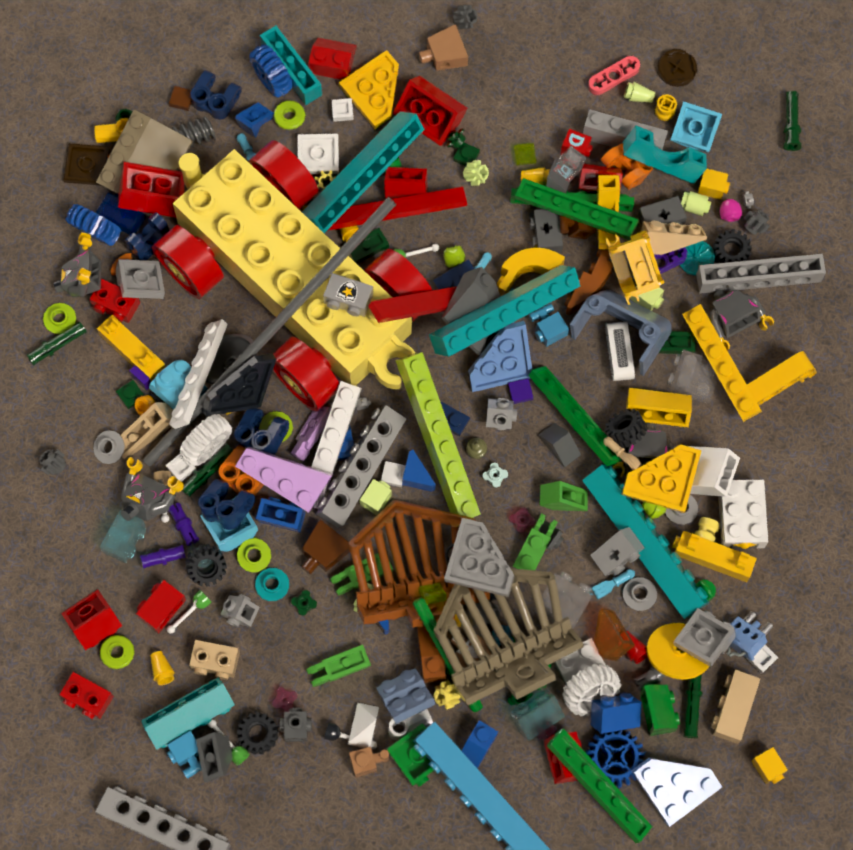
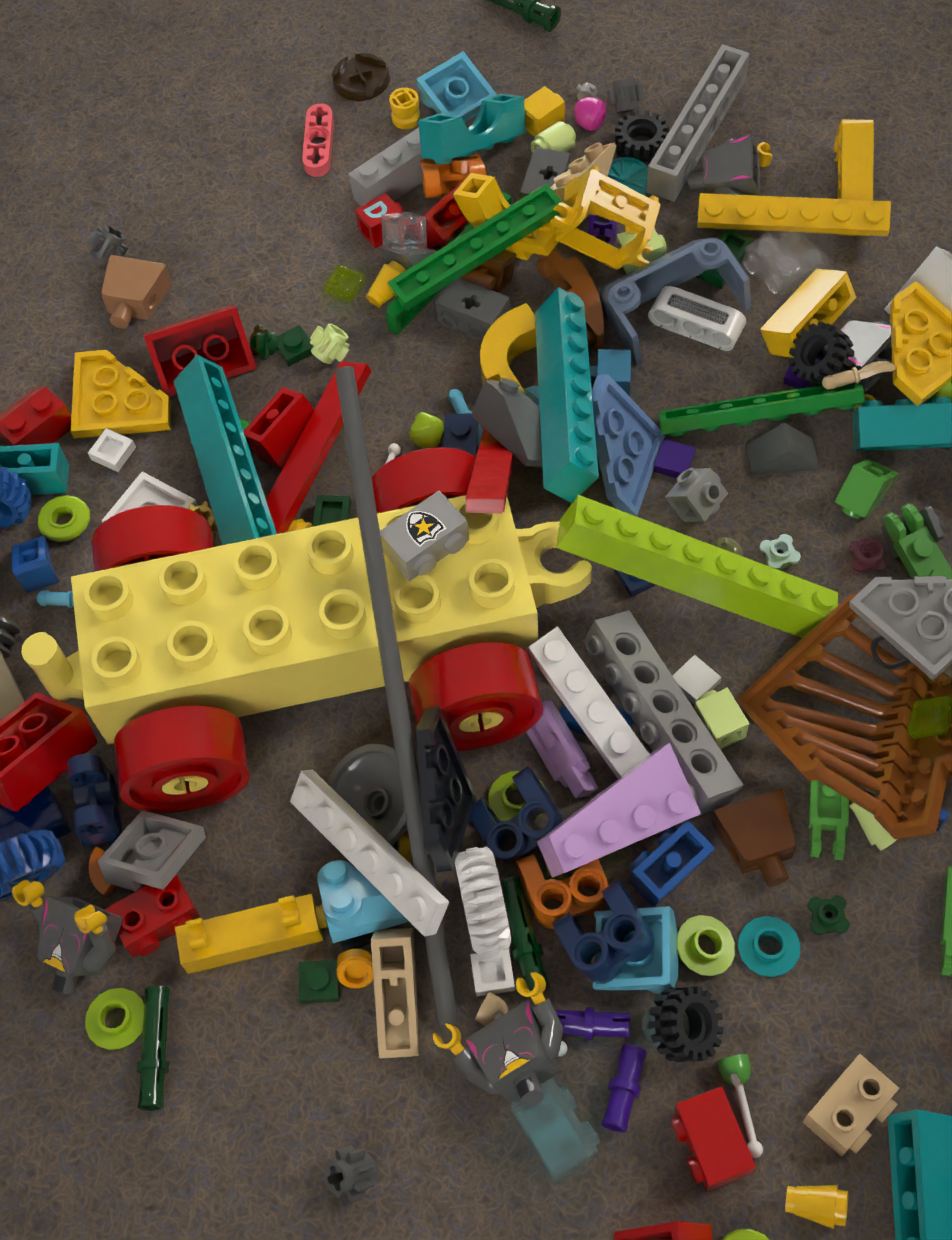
camera: 50 degrees left, 10 degrees down
(117, 447) = (404, 1066): light grey piece -> none
(140, 377) = (305, 947): dark purple tile -> none
(239, 610) = (792, 1016): light grey brick -> none
(416, 474) = (717, 645): blue slope -> none
(638, 93) = (362, 126): yellowish green cone -> none

